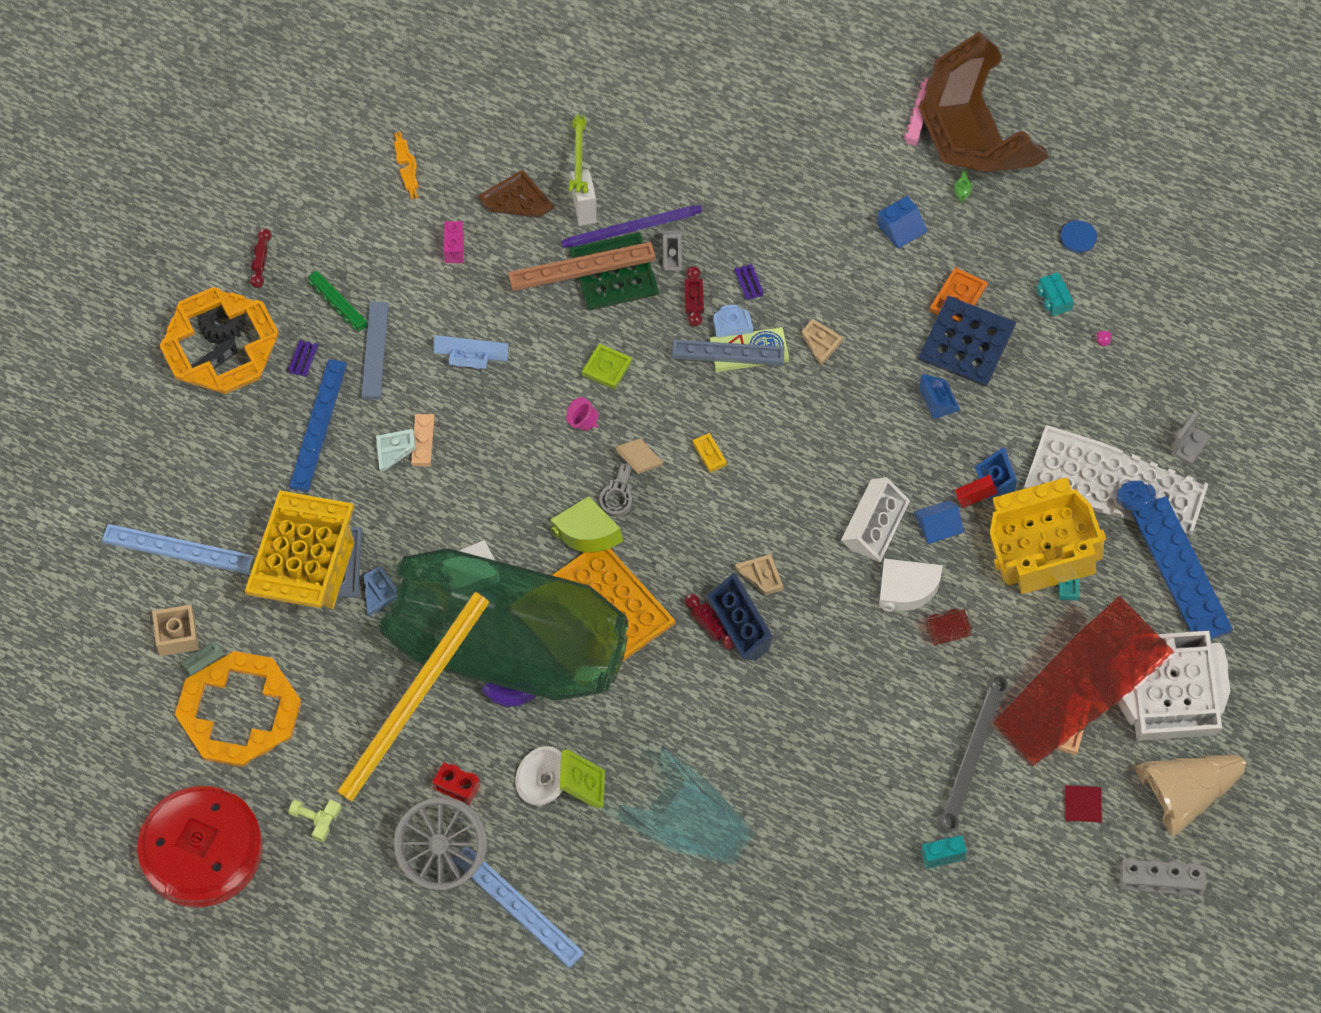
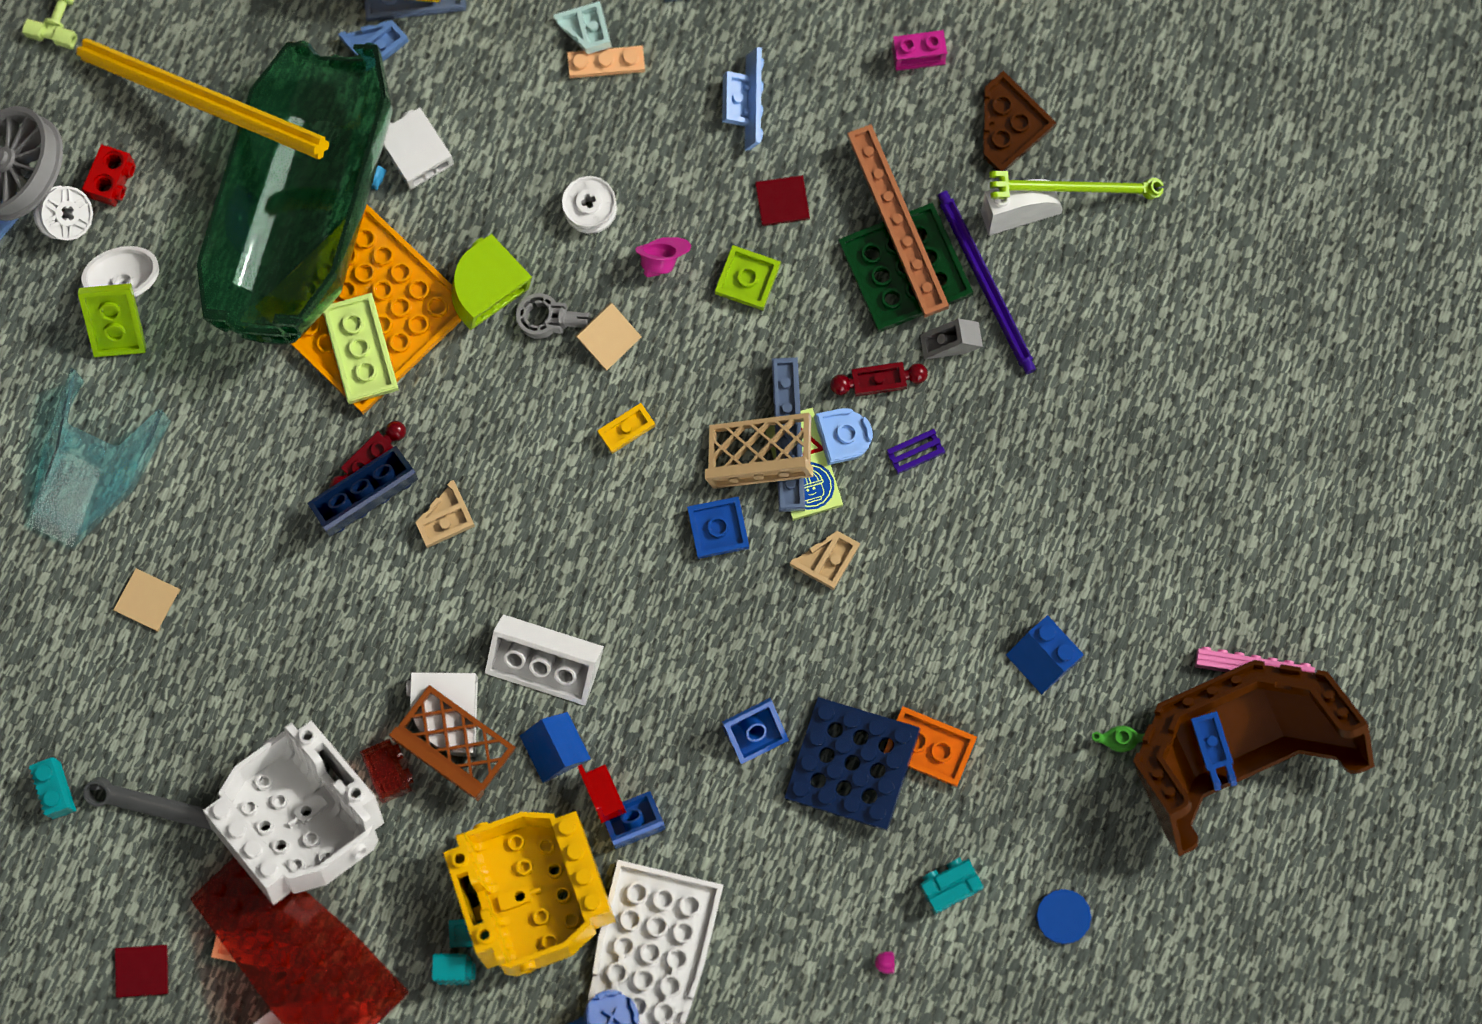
camera: 85 degrees right, 15 degrees up
(490, 811) = (77, 213): none -> white wheel
(535, 468) = (603, 200): none -> white wheel
(550, 341) = (782, 200): none -> dark red piece
(644, 612) = (360, 348): none -> yellowish green tile
(755, 371) = (755, 471): none -> tan fence
(790, 403) = (718, 527): none -> blue plate
(801, 782) = (146, 599): none -> tan piece
(944, 590) = (442, 764): none -> dark orange fence
(978, 132) = (1213, 747): none -> blue hinge
(1007, 680) = (275, 790): none -> white piece
(1097, 591) = (453, 969): none -> teal brick

